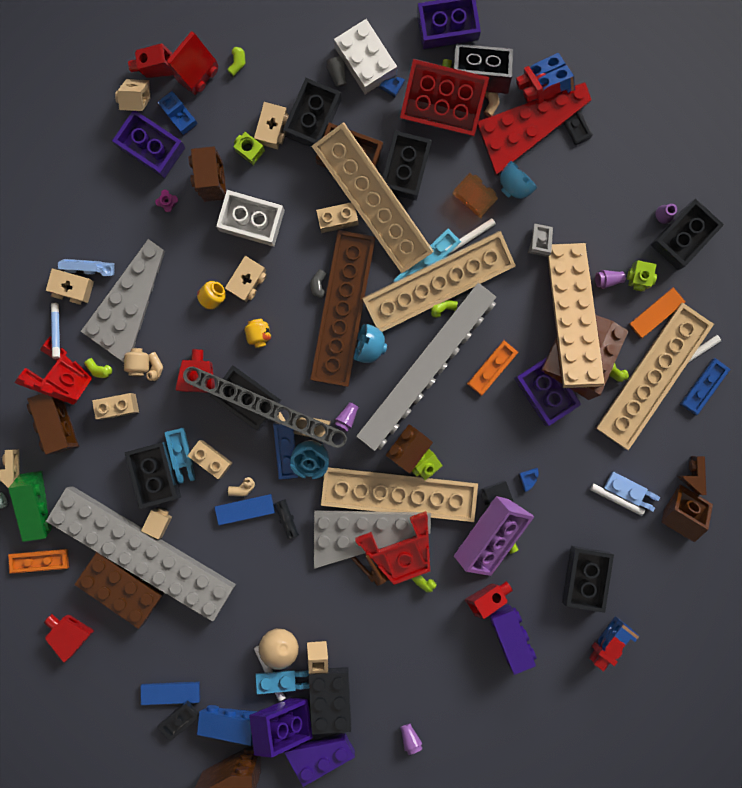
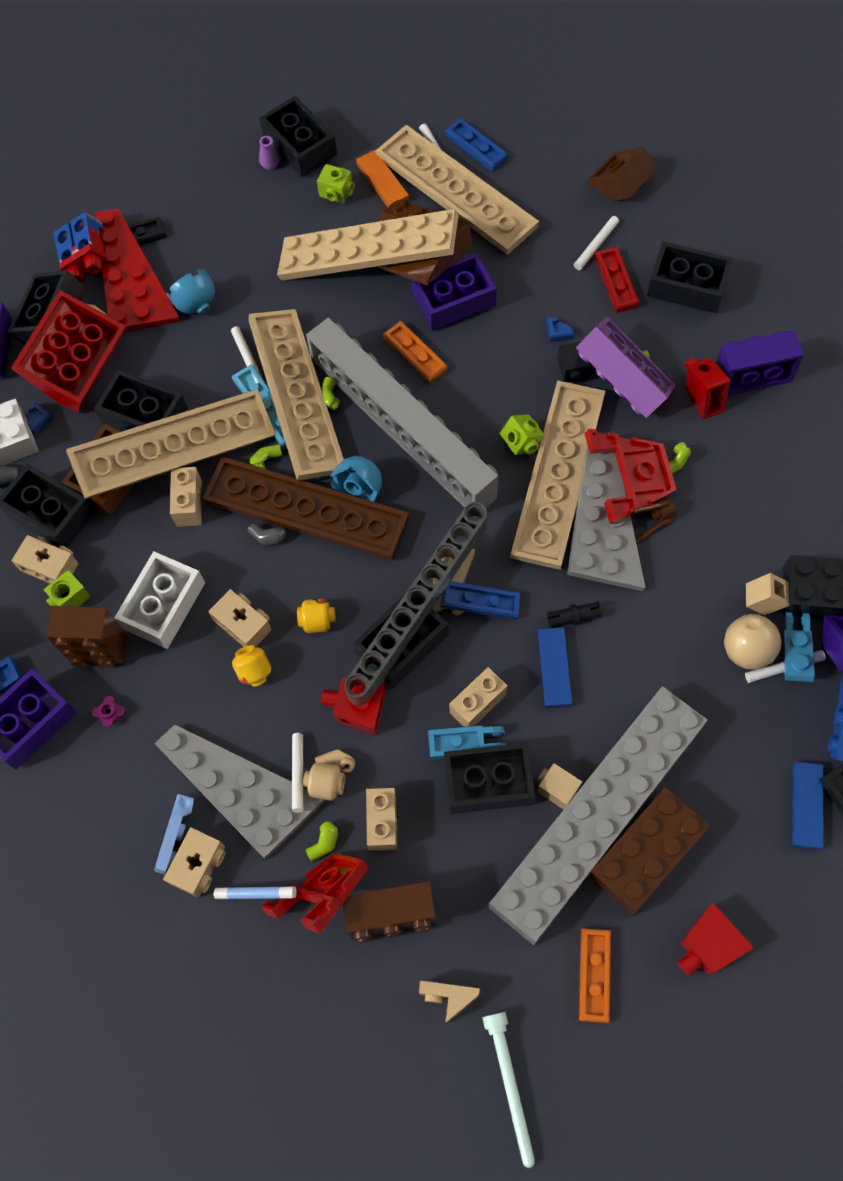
camera: 70 degrees left, 20 degrees down
(30, 506) = (511, 966): green wedge -> none
(141, 342) = (297, 772): none -> white bar
(243, 490) = (526, 665): tan arm -> none
(309, 459) = (498, 566): dark azure cylinder -> none
(346, 418) = (443, 518): medium lavender cone -> none
(384, 267) = (264, 454): none -> lime arm
(409, 448) = (500, 445): reddish brown slope -> none
(475, 195) = (199, 341): clear orange brick -> none
(541, 240) = (273, 277): light grey slope -> none
(583, 519) = (616, 280): none -> red tile
(609, 278) = (331, 218): medium lavender cone -> none
(611, 643) = (770, 259): hips -> none
(629, 490) = (587, 228): light blue hinge -> none
(697, 480) = (583, 160): reddish brown slope -> none

